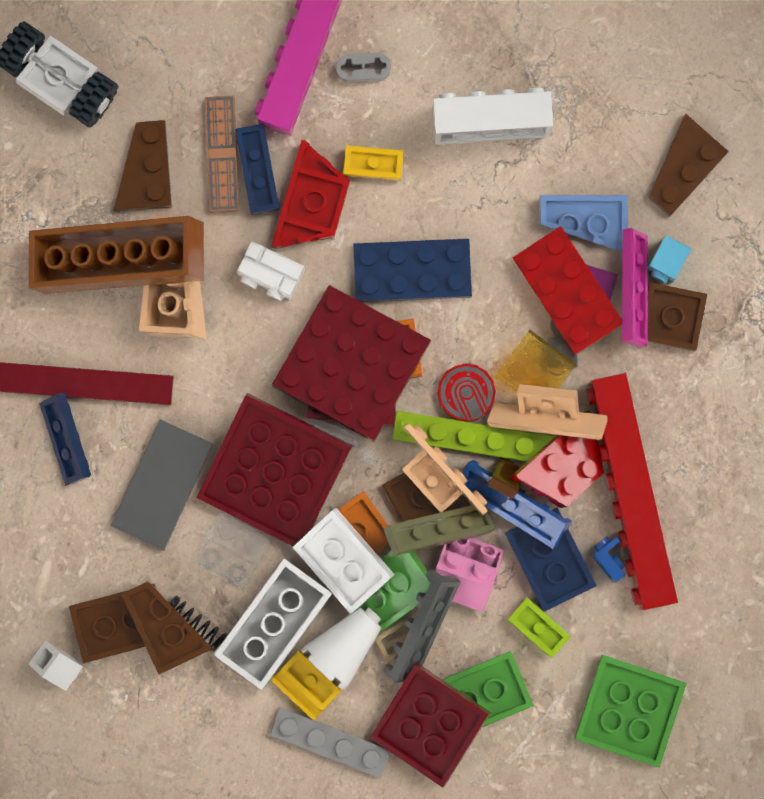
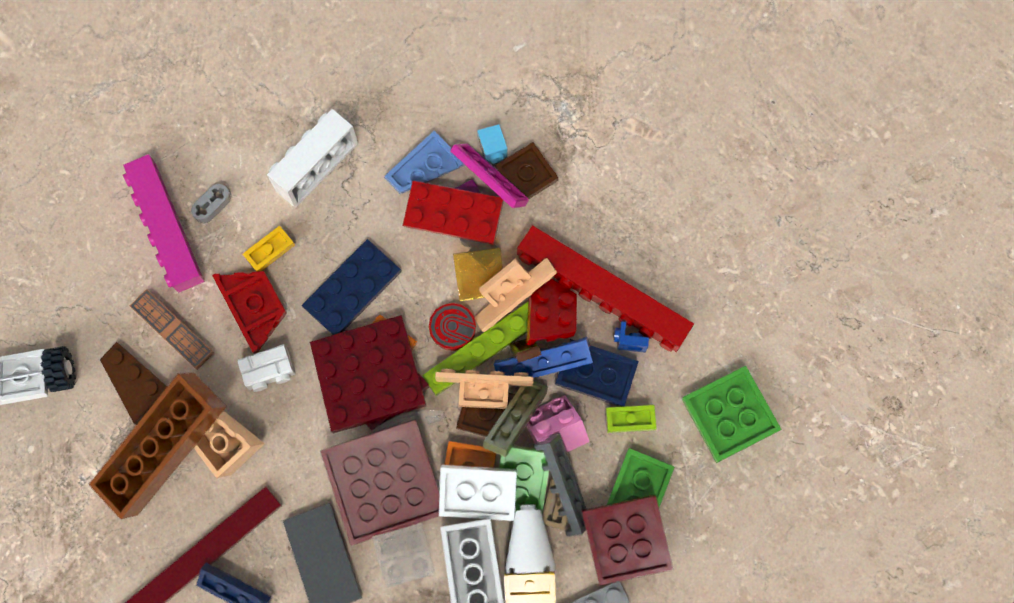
camera: 45 degrees left, 10 degrees down
(257, 169) = (201, 317): dark blue plate -> none
(687, 164) = (450, 86): reddish brown wing -> none

